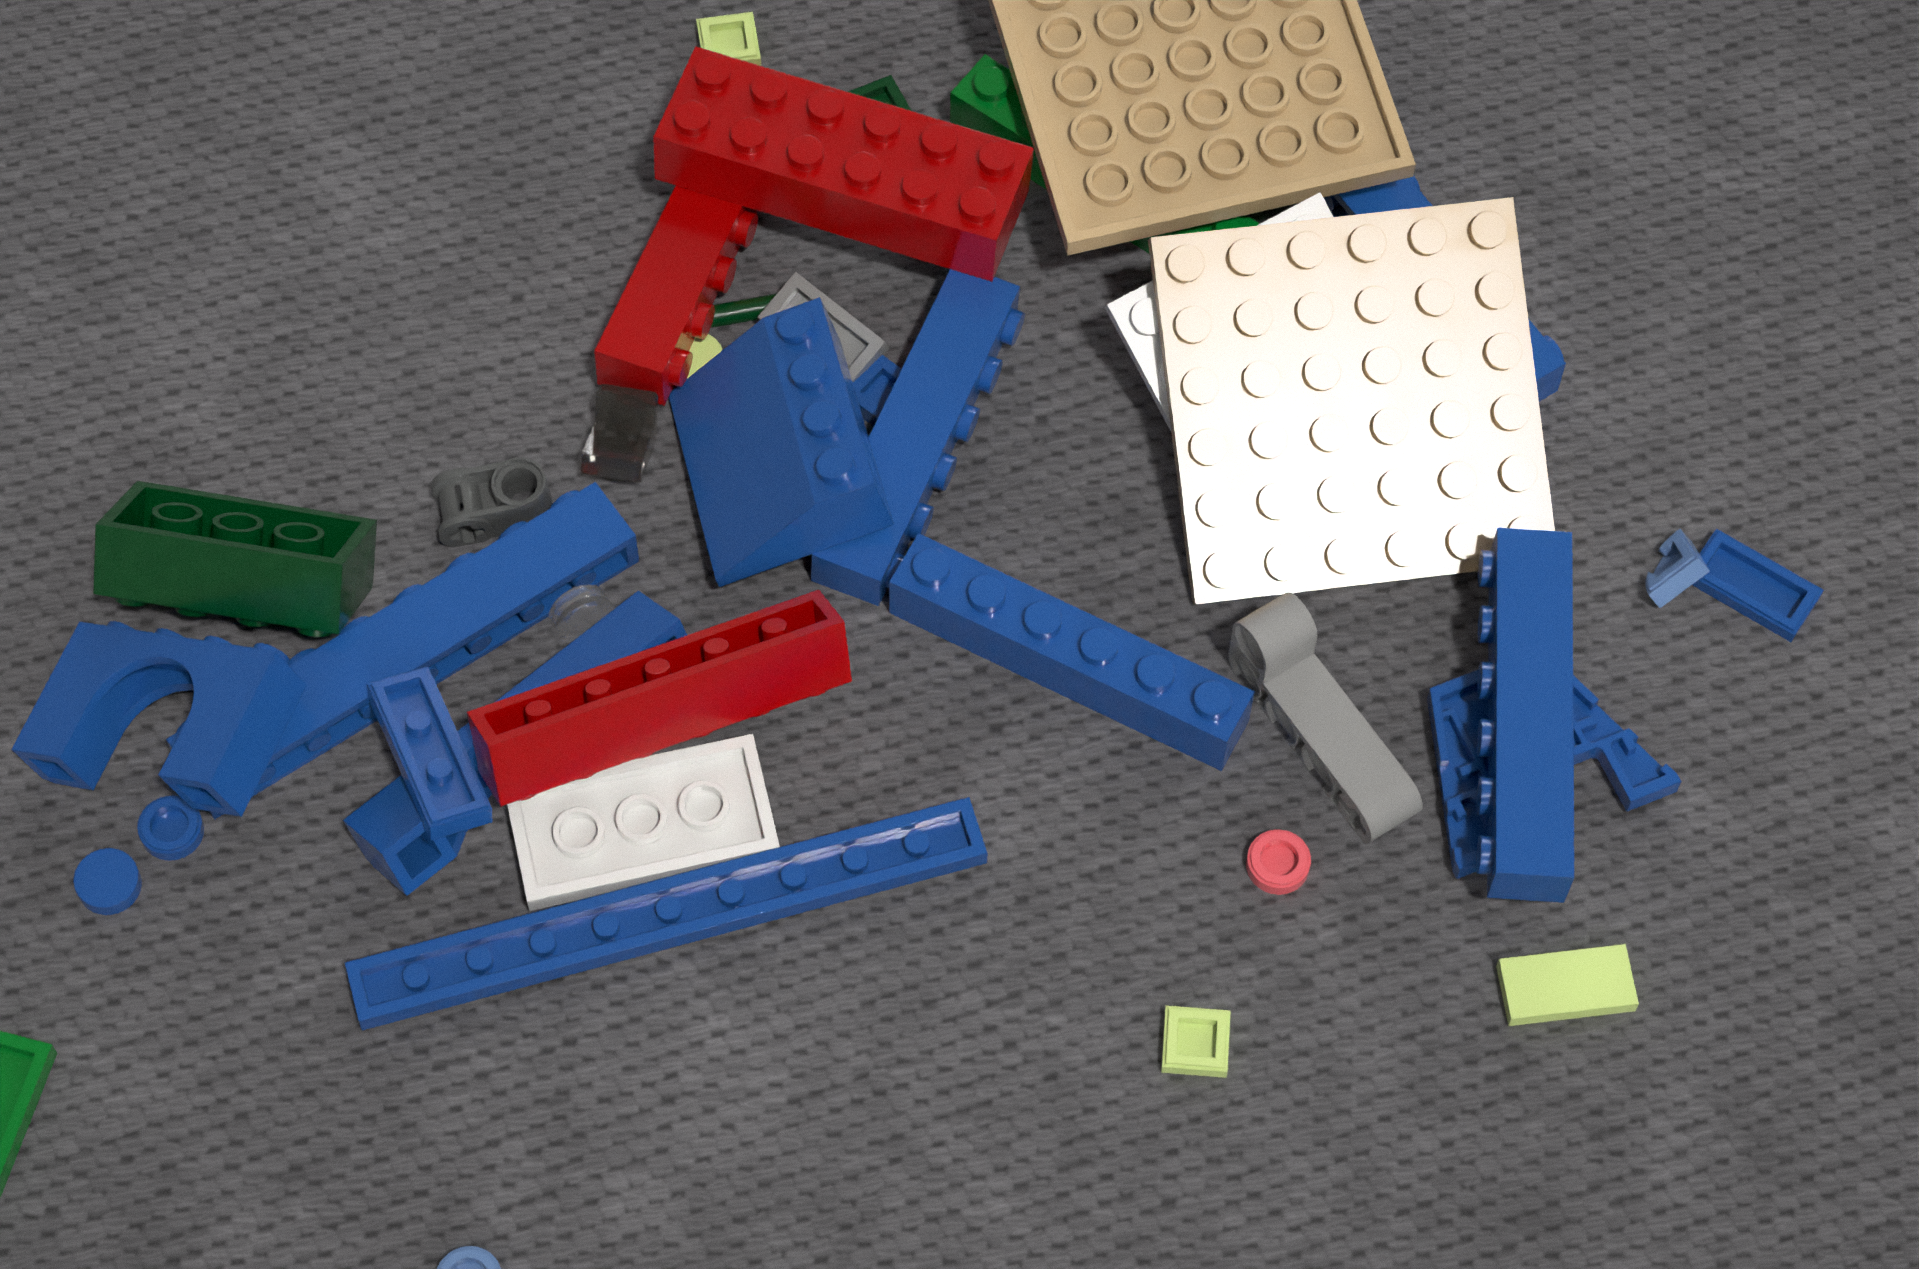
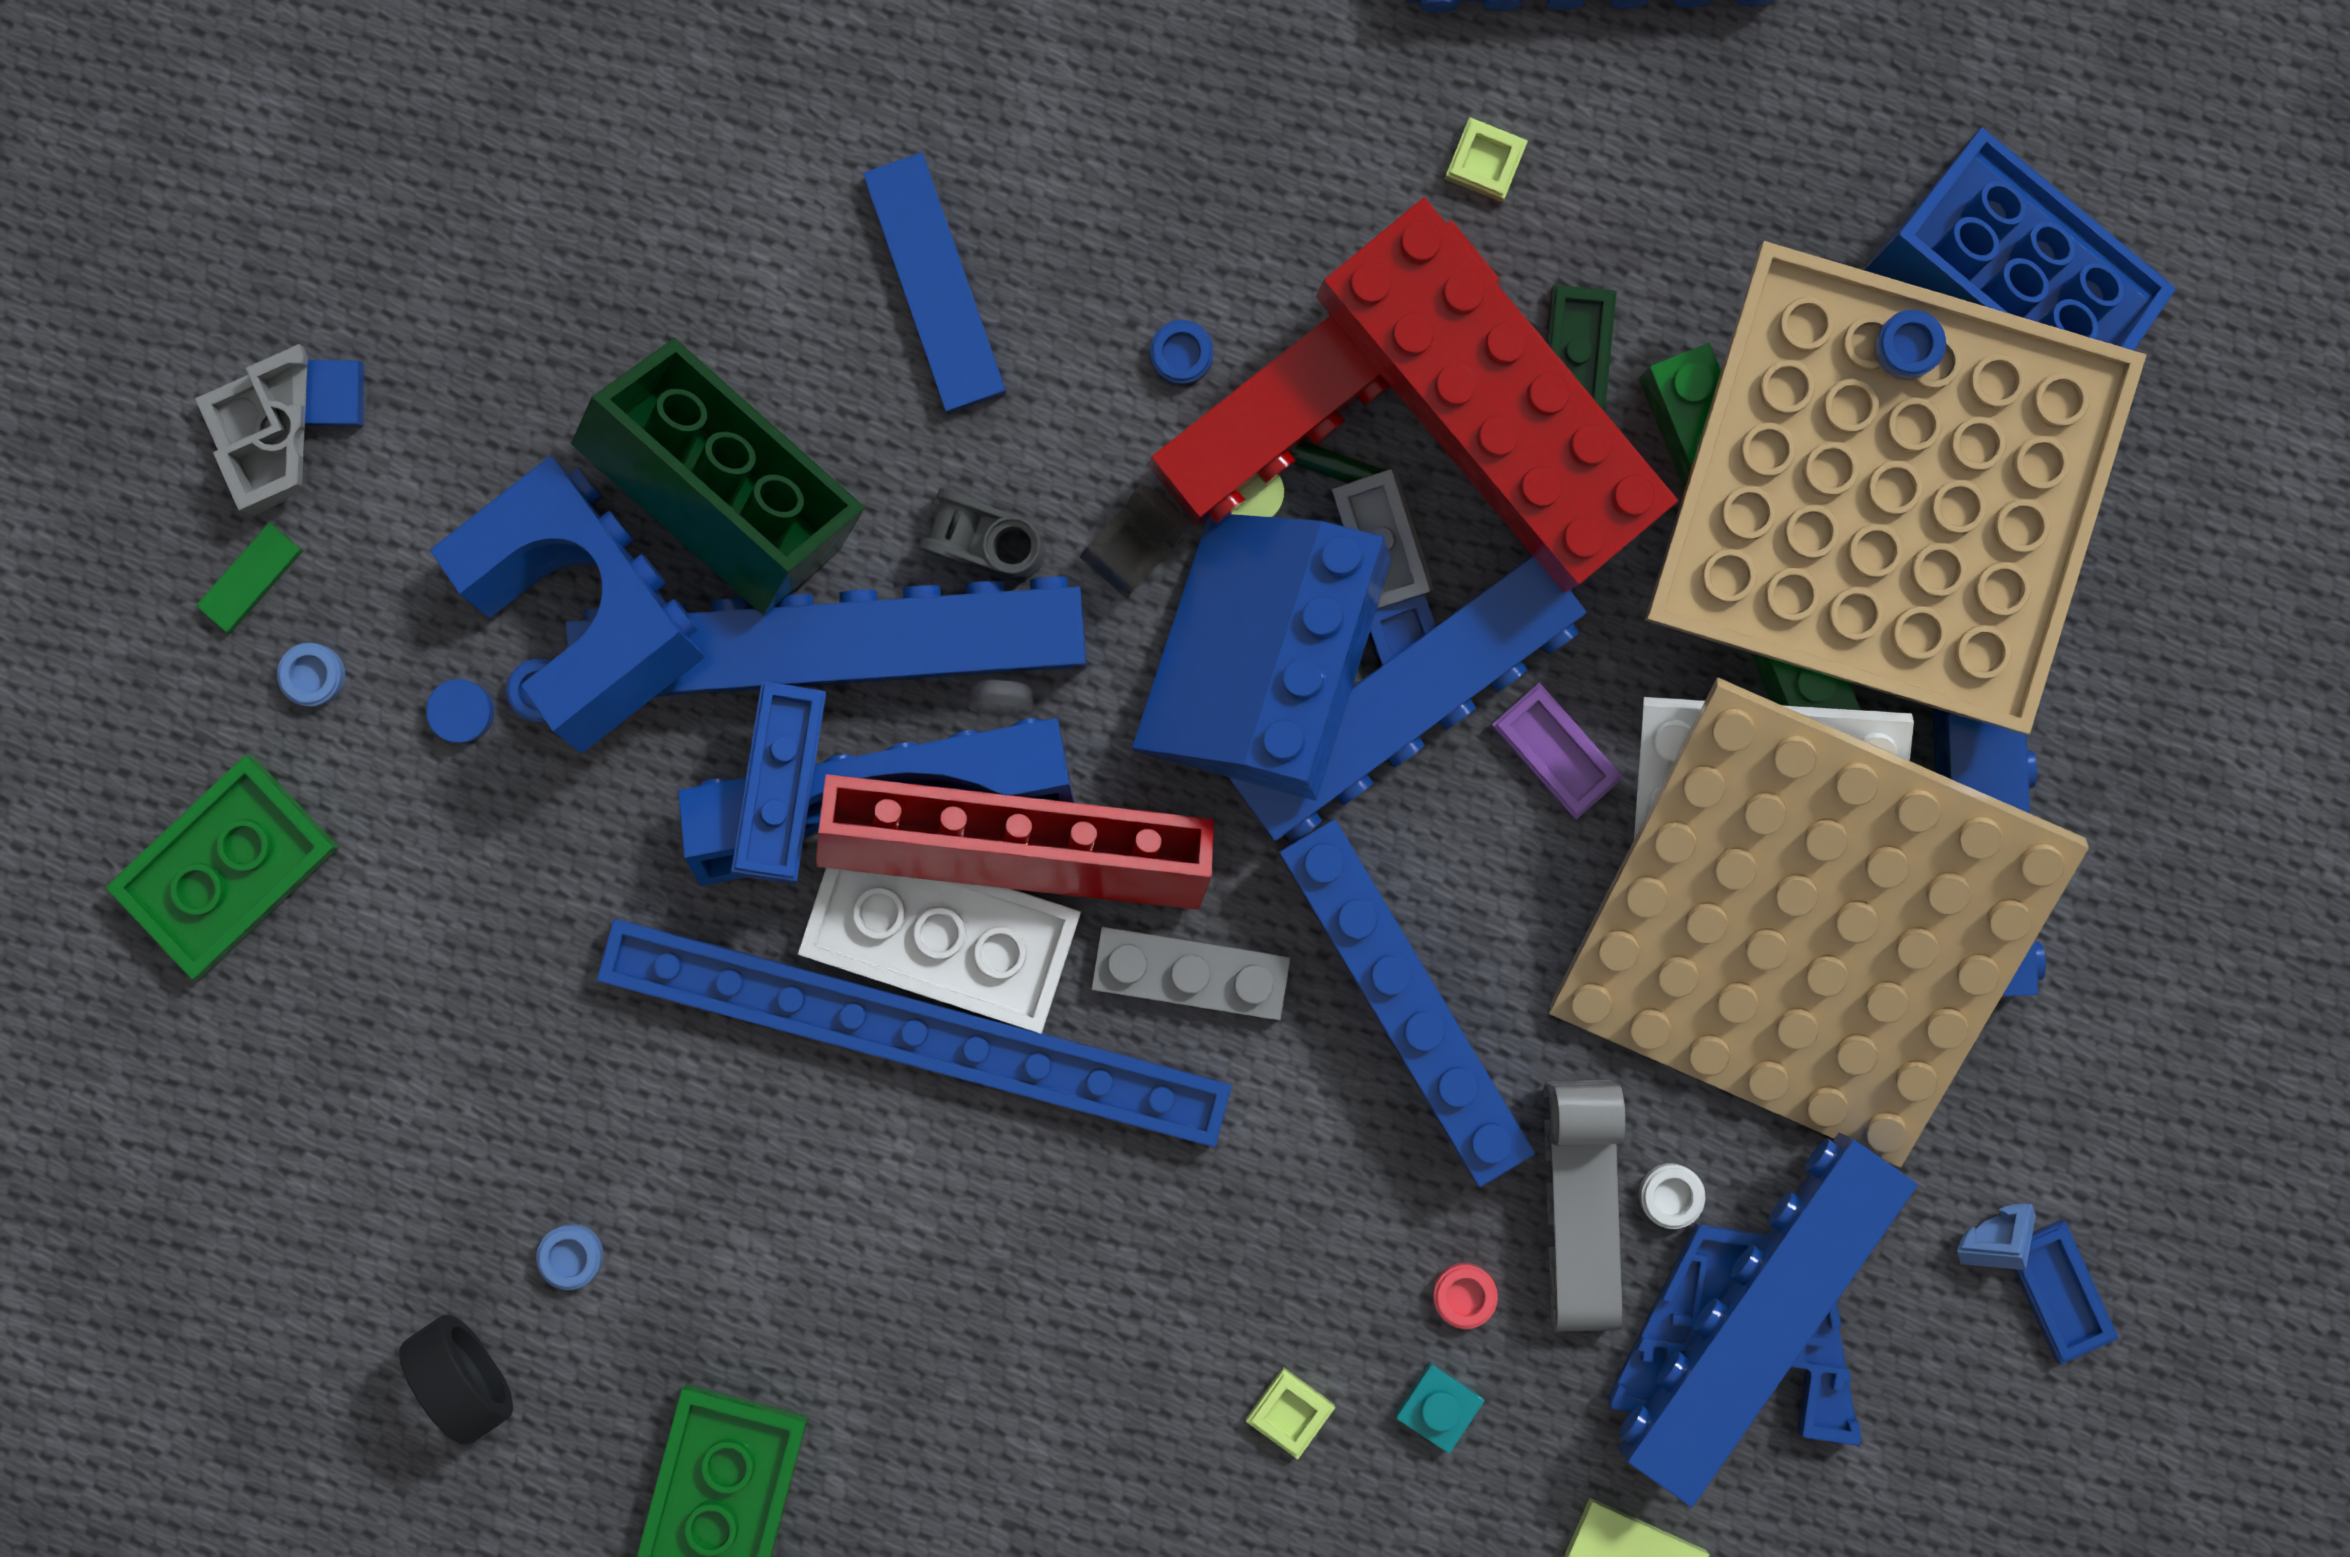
camera: 35 degrees right, 25 degrees up
(335, 348) = (934, 283): none -> blue tile
(571, 293) = (1181, 352): none -> blue tile
(877, 740) = (1191, 973): none -> light grey plate
(1067, 414) = (1557, 751): none -> medium lavender tile
(1319, 962) = (1439, 1407): none -> teal plate
(1393, 688) = (1672, 1196): none -> white tile

